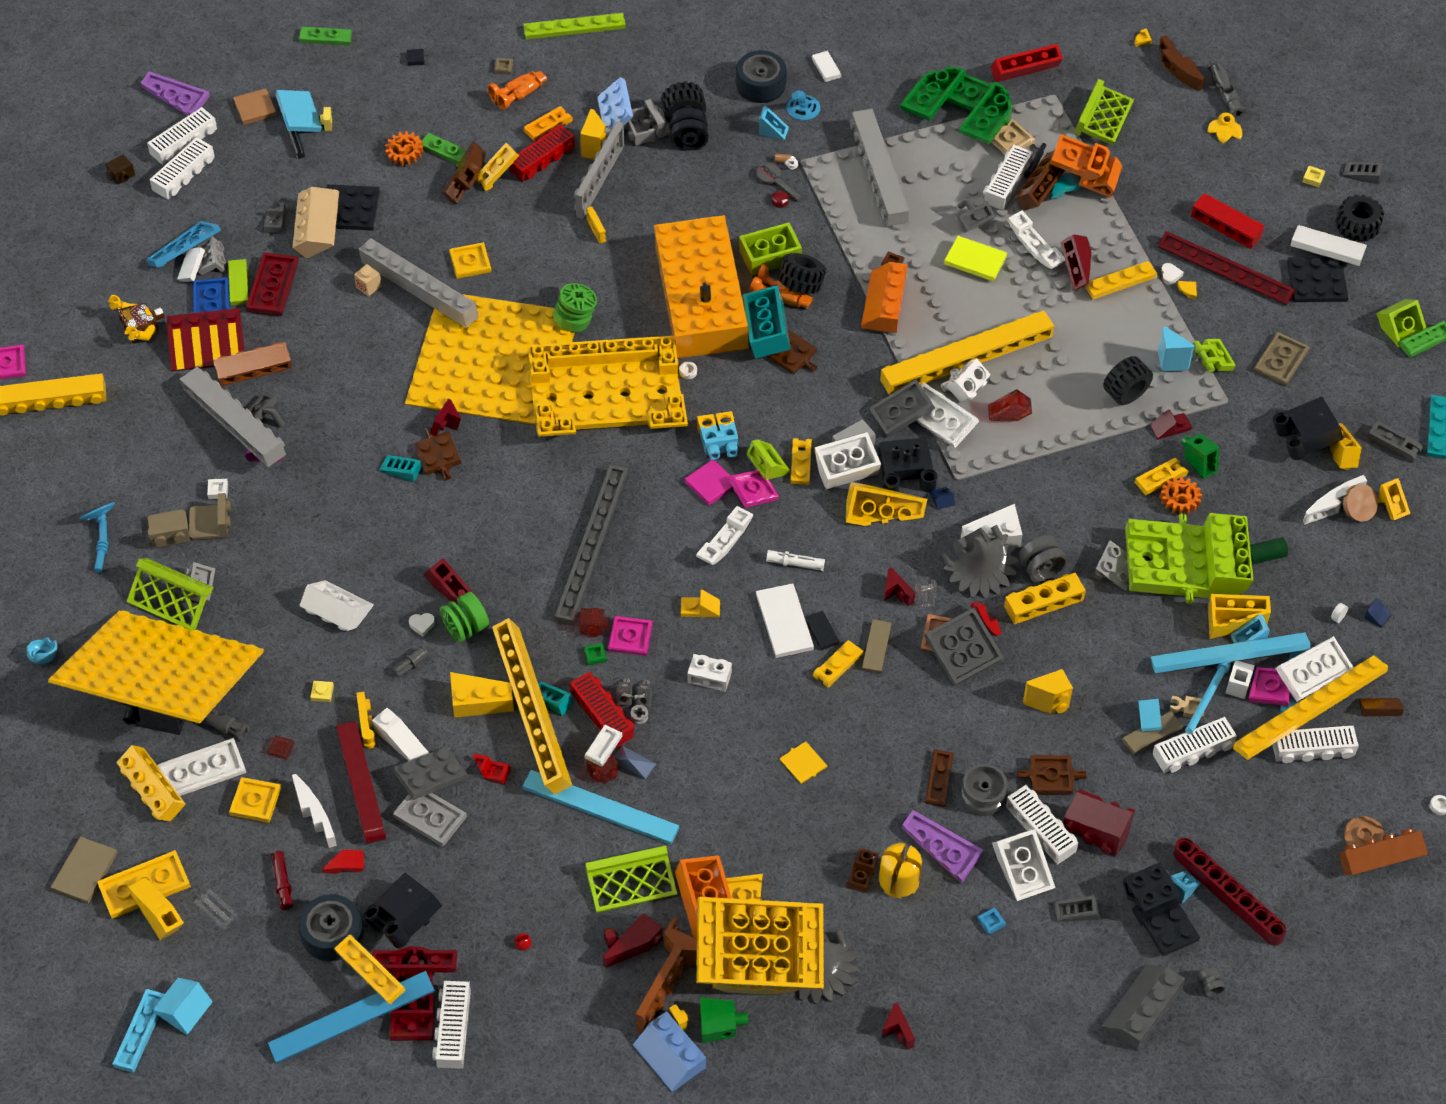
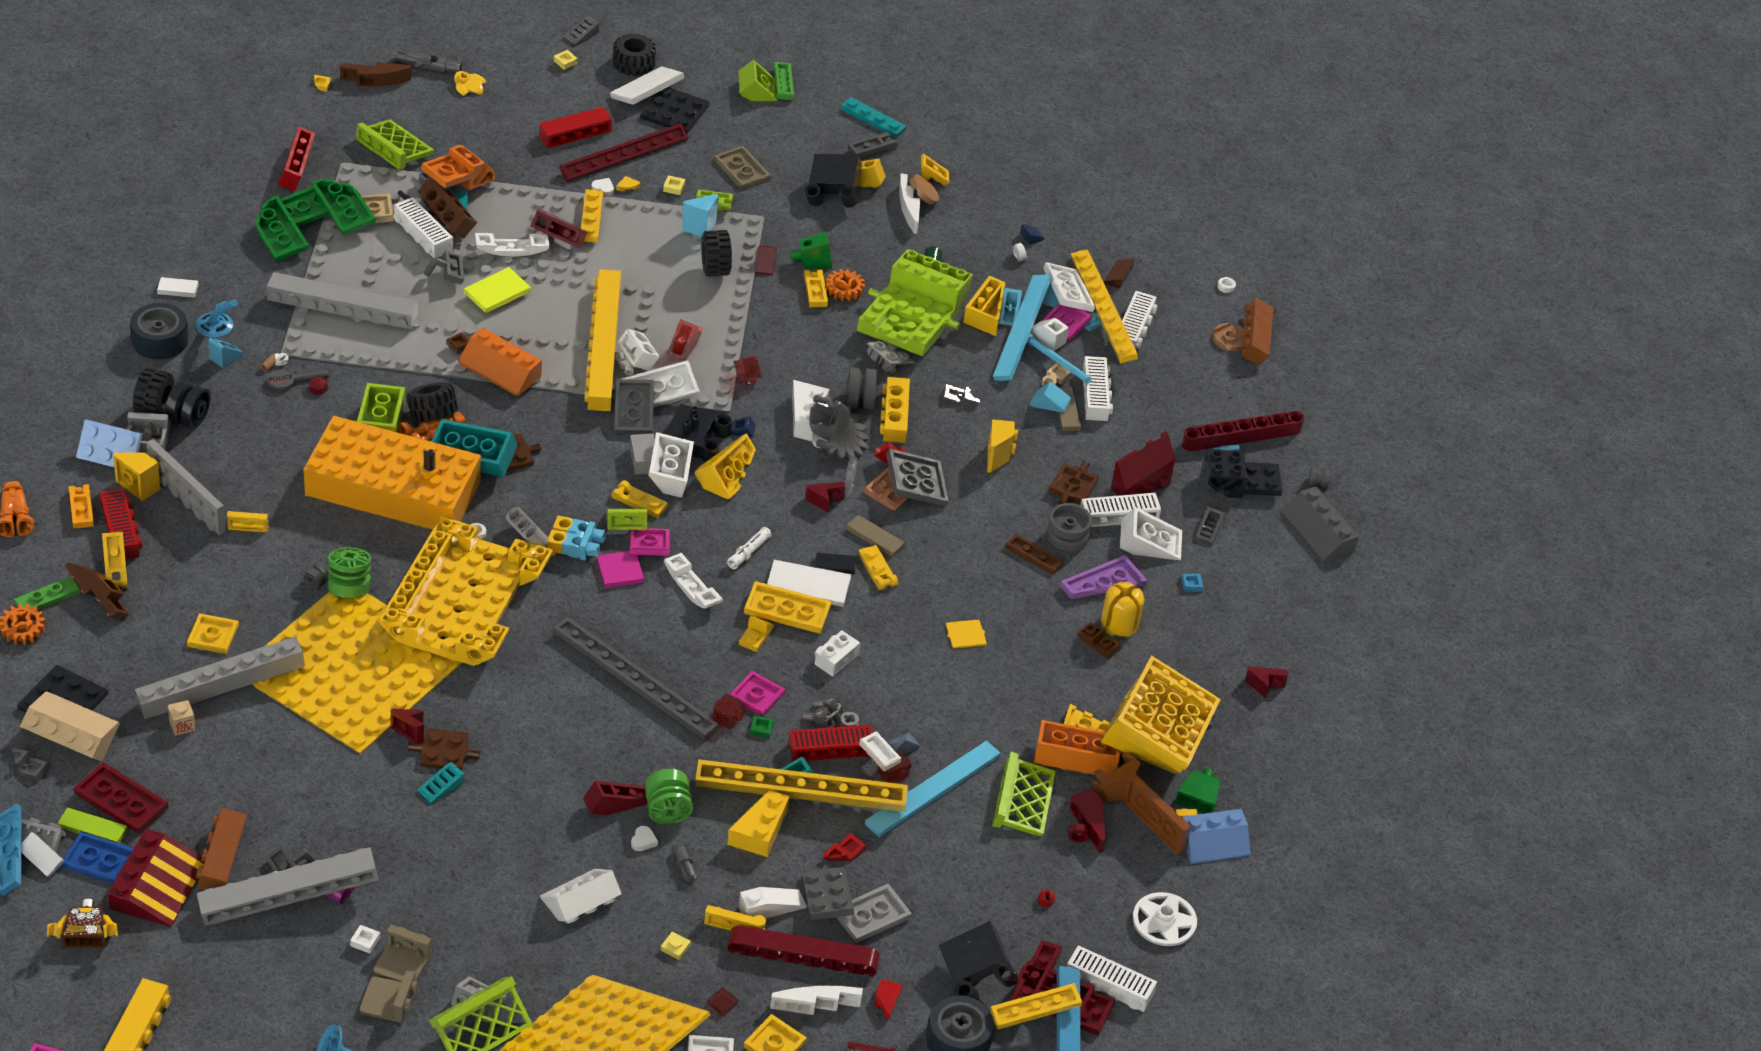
camera: 70 degrees left, 10 degrees down
(549, 1045) = (1164, 919): none -> white wheel
(703, 397) = (526, 527): none -> light grey beam
(741, 616) = (787, 607): none -> yellow plate
(1009, 468) = (747, 370): none -> clear red brick
(1103, 640) = (959, 396): none -> flat silver slope
(1212, 320) = (674, 185): none -> light yellow plate

